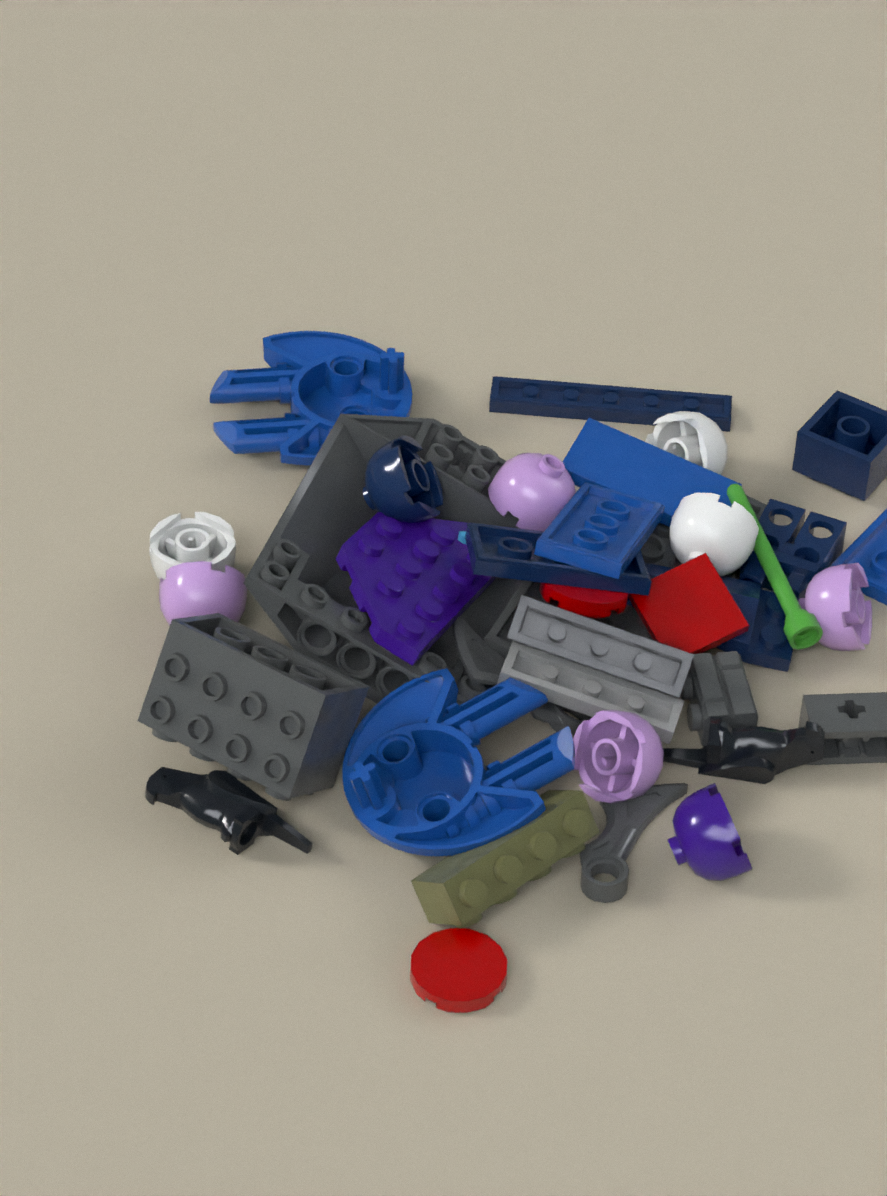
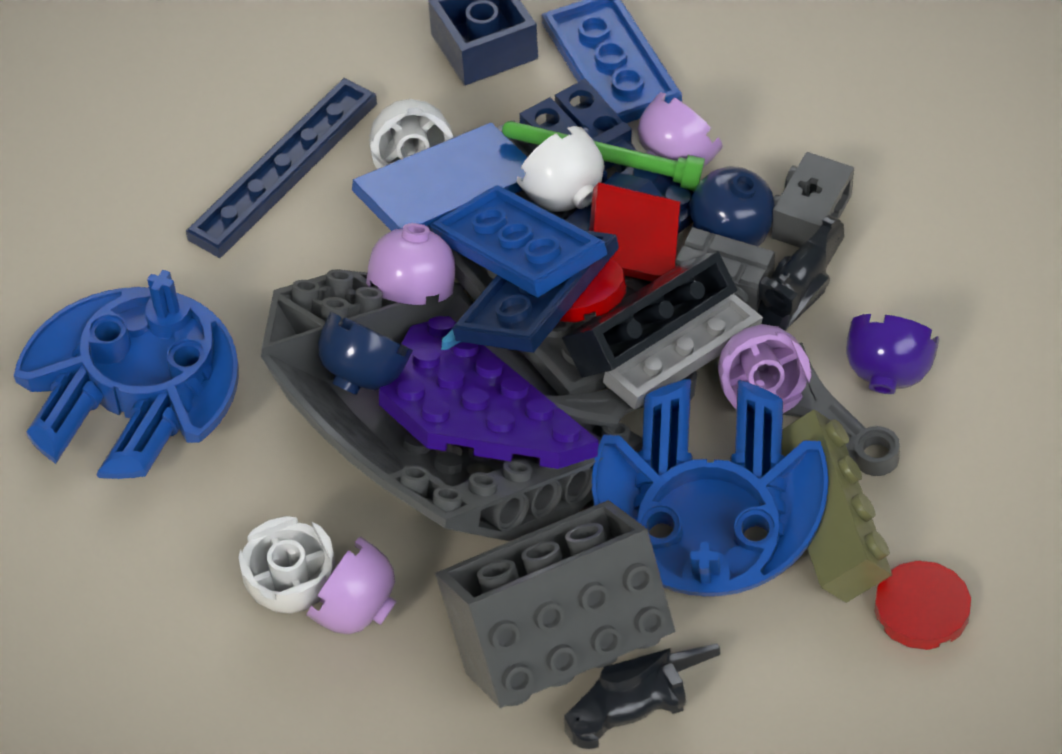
camera: 55 degrees left, 10 degrees up
(785, 671) = (733, 205): none -> dark blue cylinder

